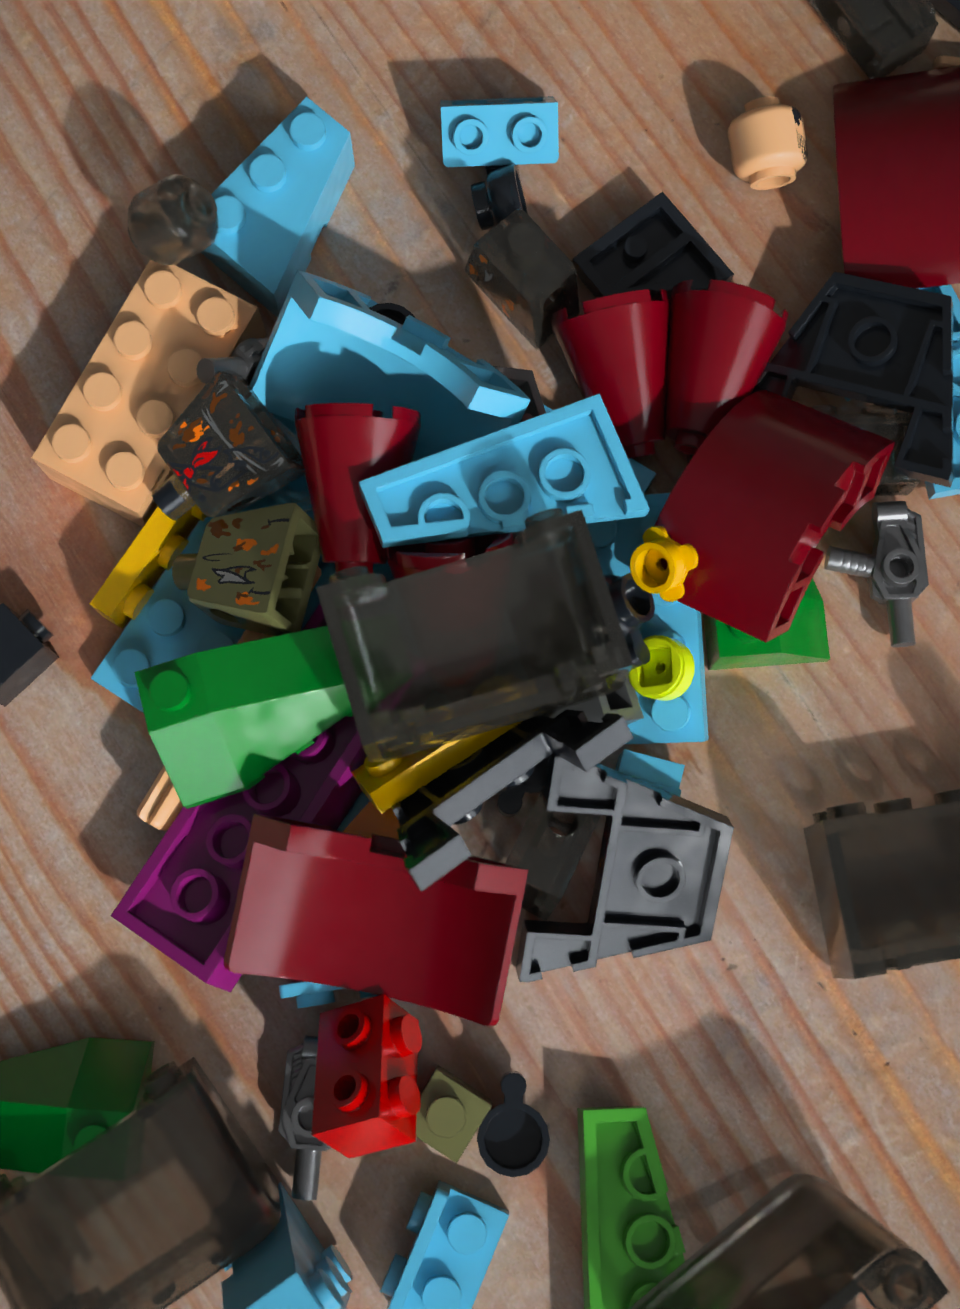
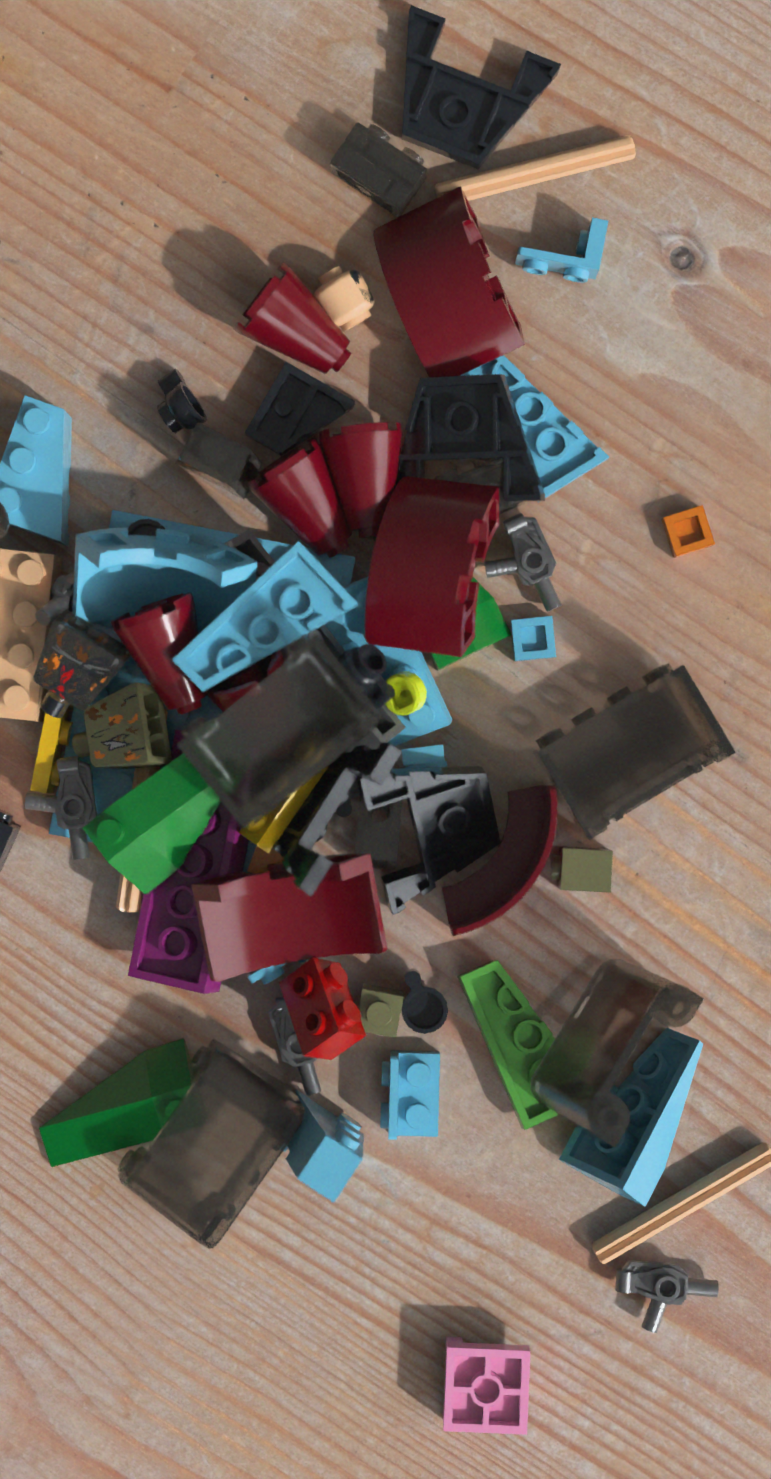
camera: 20 degrees left, 10 degrees up
(140, 642) = (74, 804): none -> flat silver piece
(499, 131) = (159, 359): medium azure bracket -> none
(647, 566) = (379, 632): yellow plate -> none
(692, 144) = (295, 324): none -> dark red cone
(728, 976) = (512, 867): none -> dark red panel
(817, 1023) = (582, 869): none -> olive brick
(858, 675) = (533, 638): none -> medium azure tile

